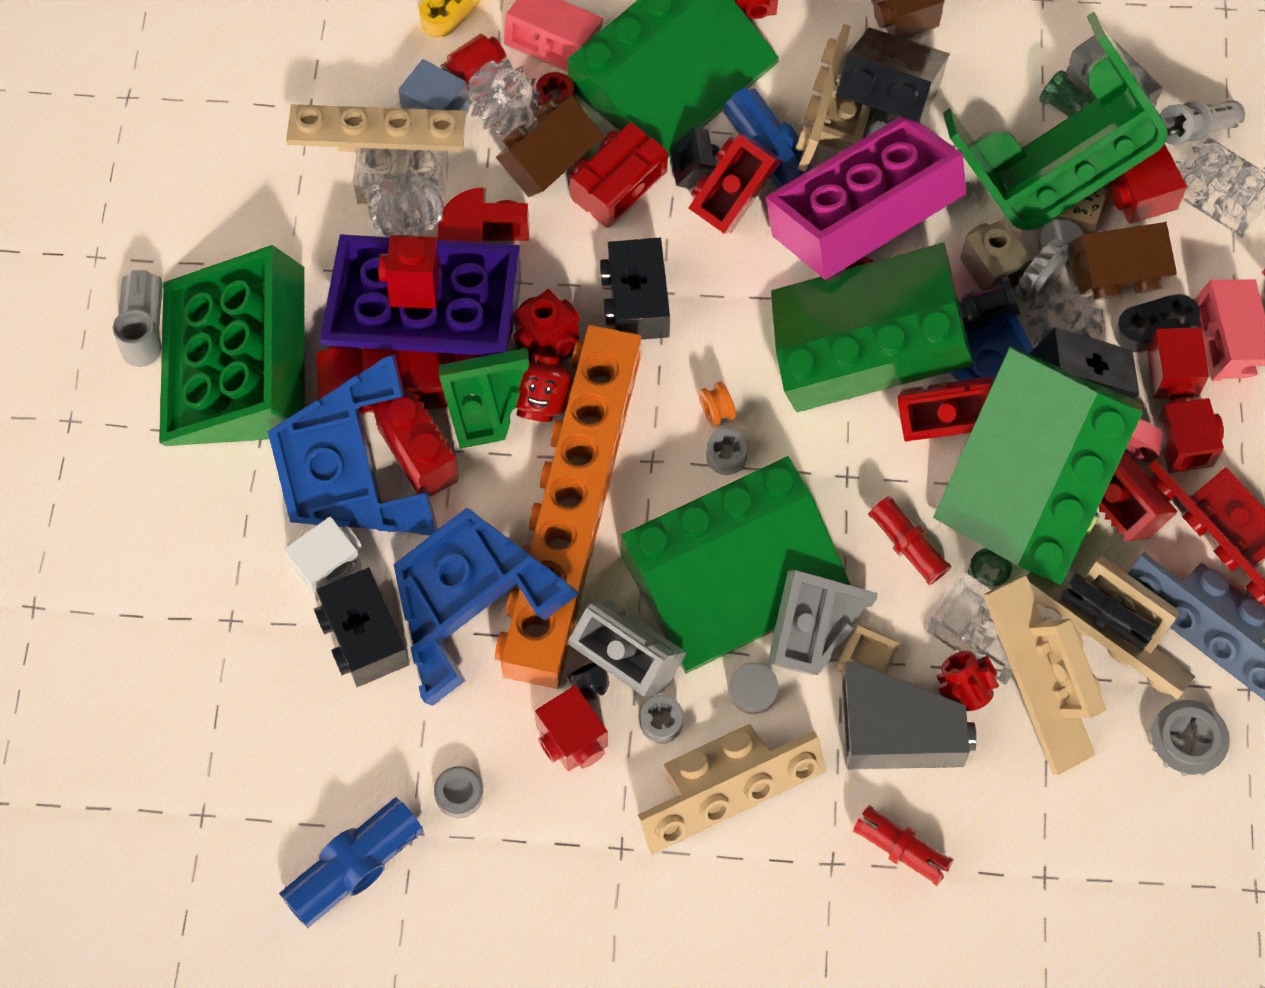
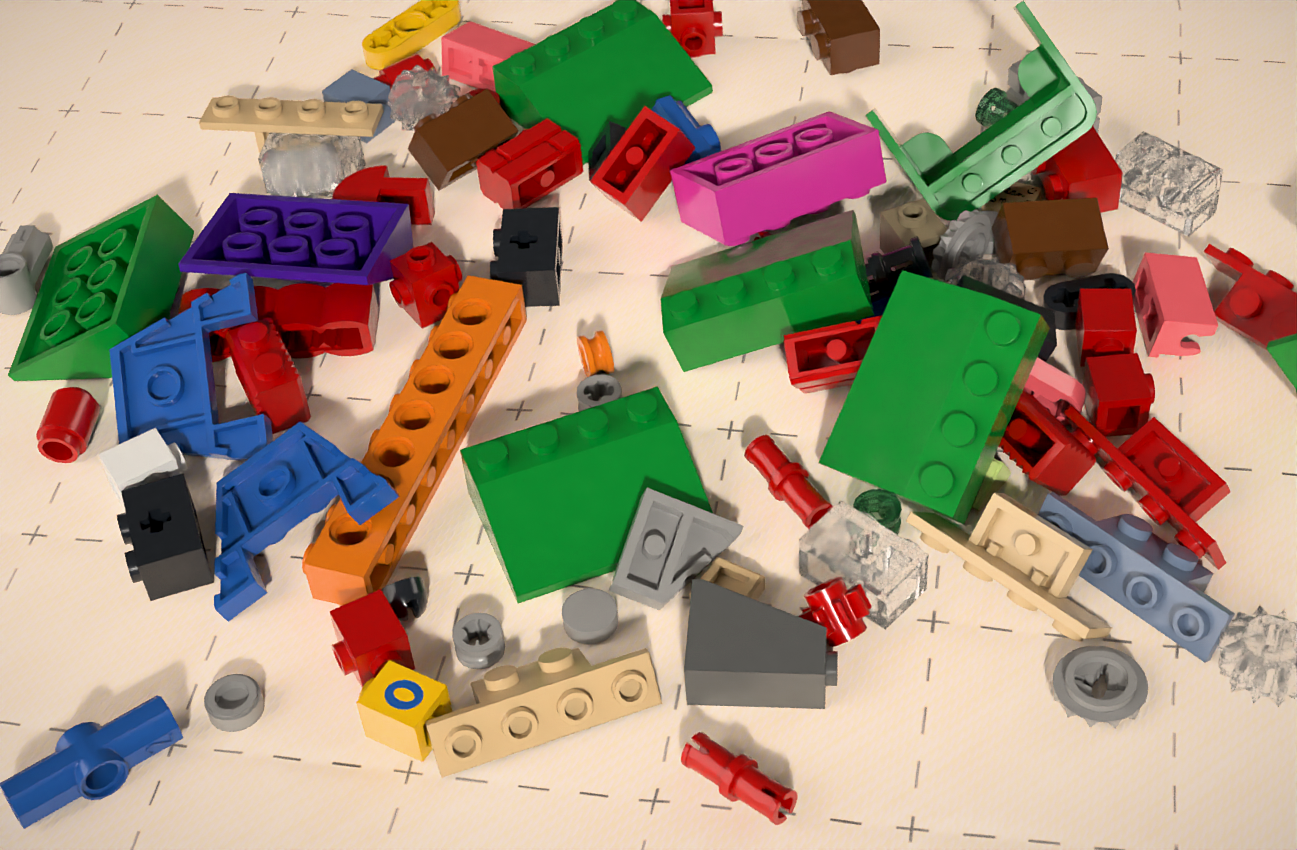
camera: 10 degrees right, 20 degrees down
(236, 503) = (67, 424): none -> red brick
(411, 271) = (284, 205): red brick -> none
(483, 395) = (341, 327): green wing -> none
(543, 389) = (405, 329): red head -> none
(612, 797) = (397, 706): none -> yellow brick
(626, 648) = (448, 561): light grey brick -> none
(833, 119) = (755, 108): tan bracket -> none
(892, 74) = (818, 83): black brick -> none
(1049, 672) = (927, 596): tan bracket -> none
(1109, 612) = (1008, 546): black pin -> none
(1196, 120) = (1132, 115): light grey pin -> none

